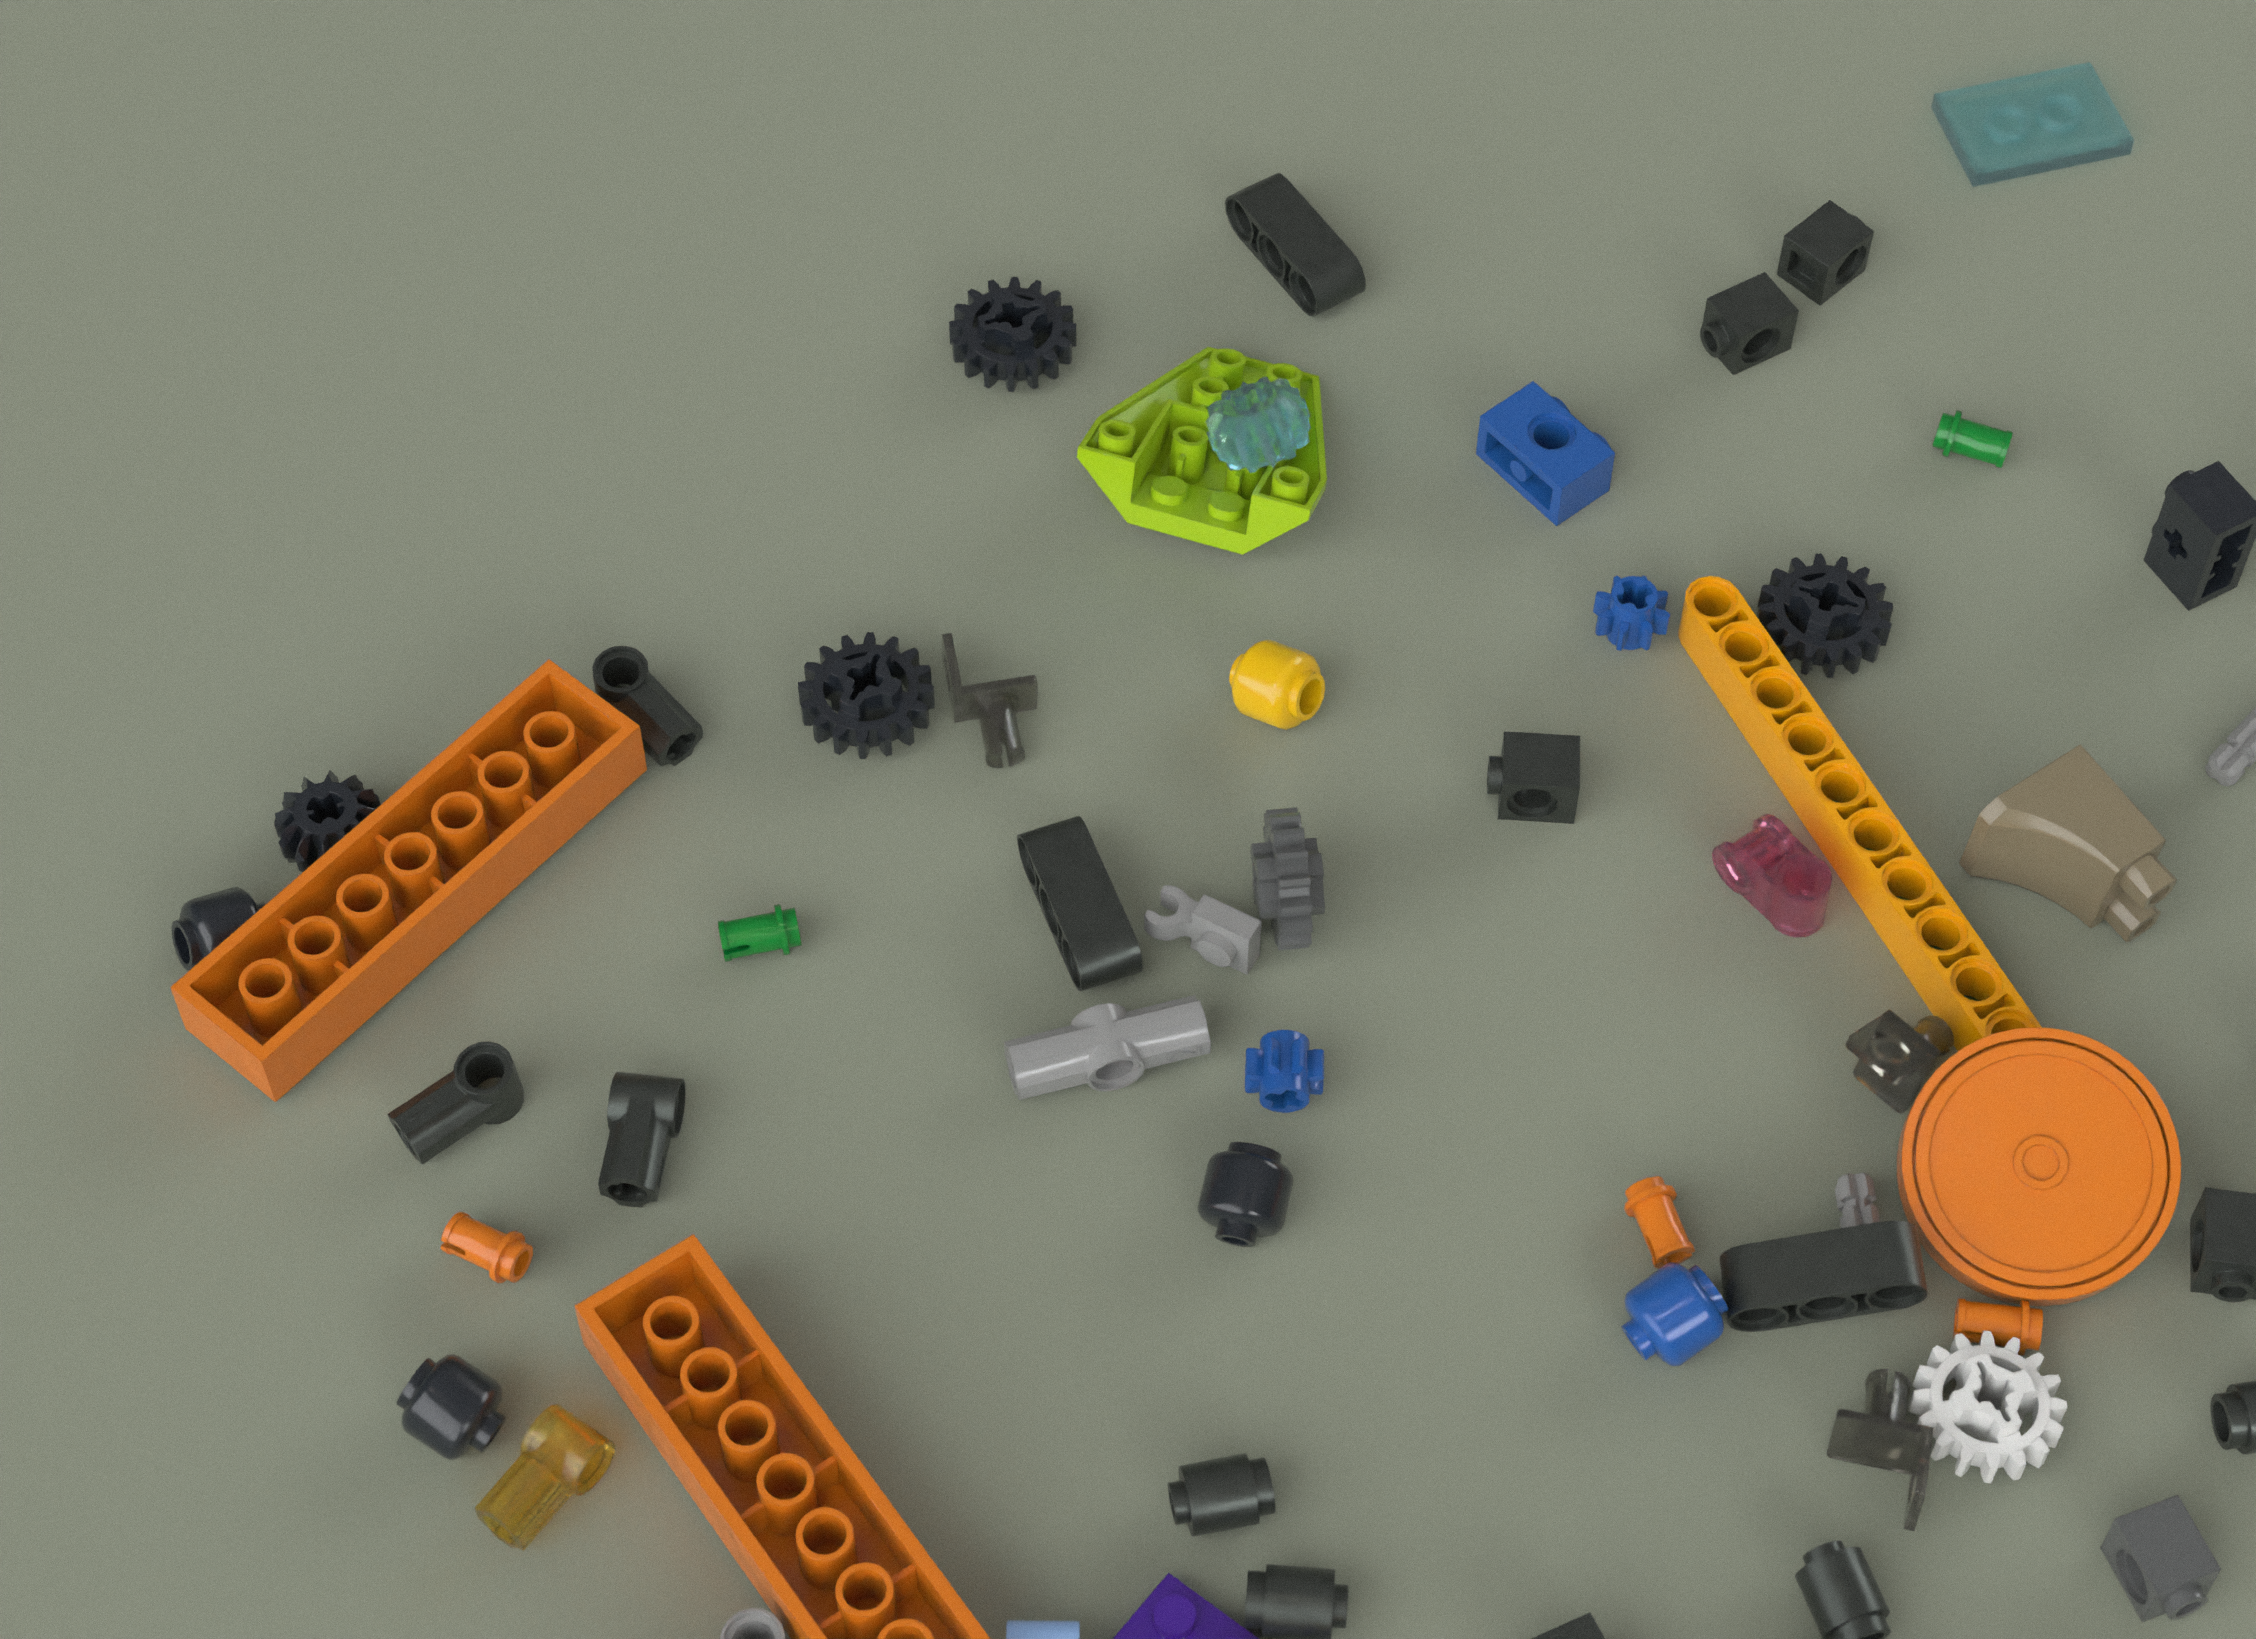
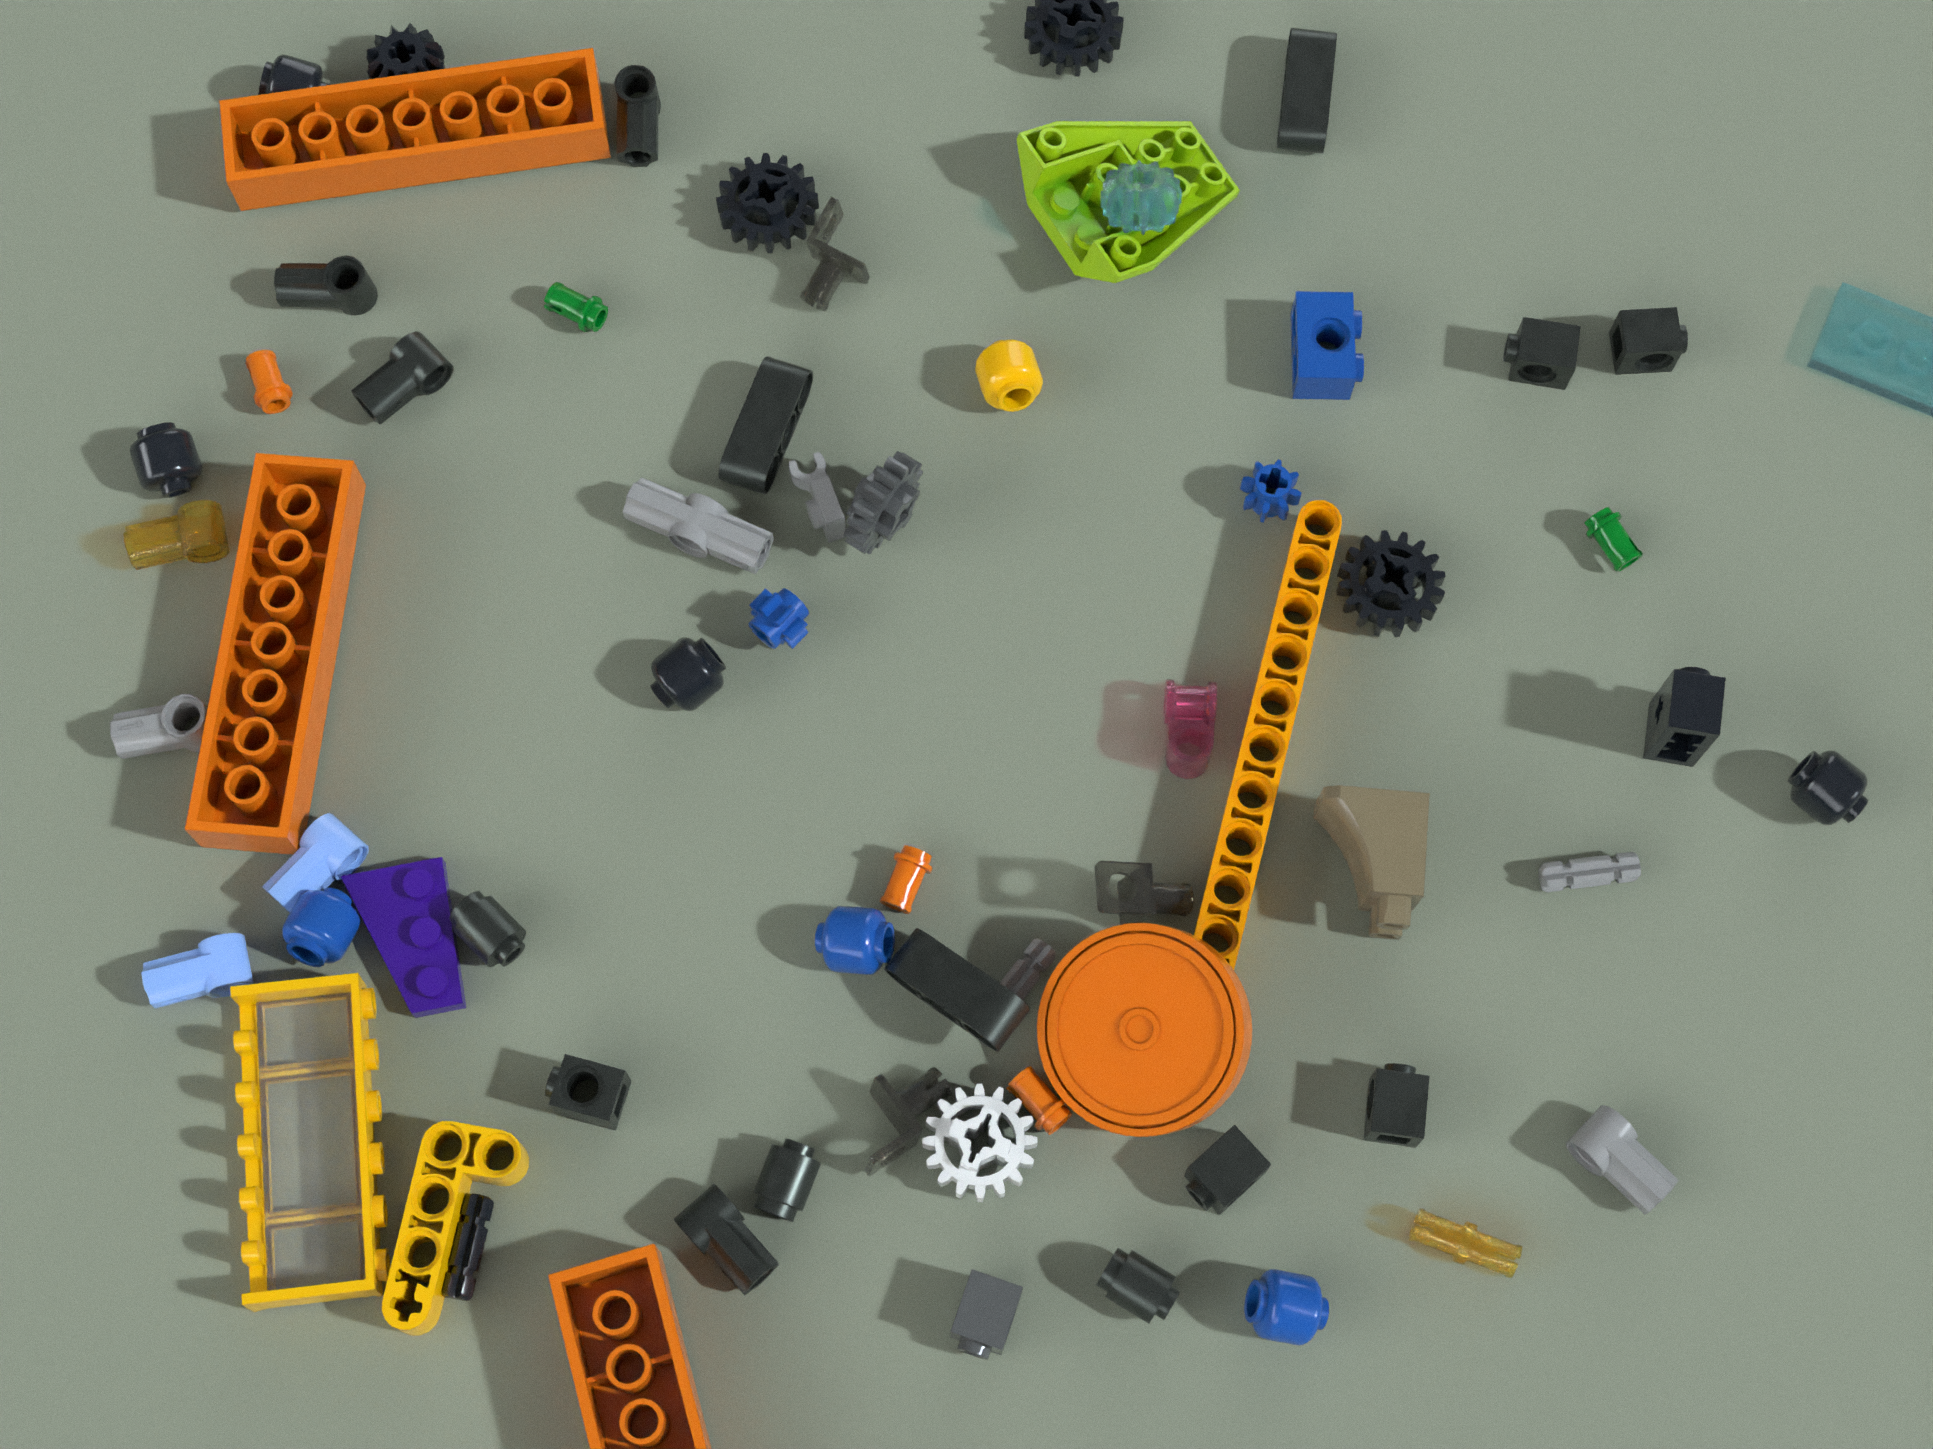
camera: 40 degrees right, 15 degrees up
(1221, 1494) = (508, 836): pearl dark grey brick -> none
(1536, 777) = (1106, 552): pearl dark grey brick -> none

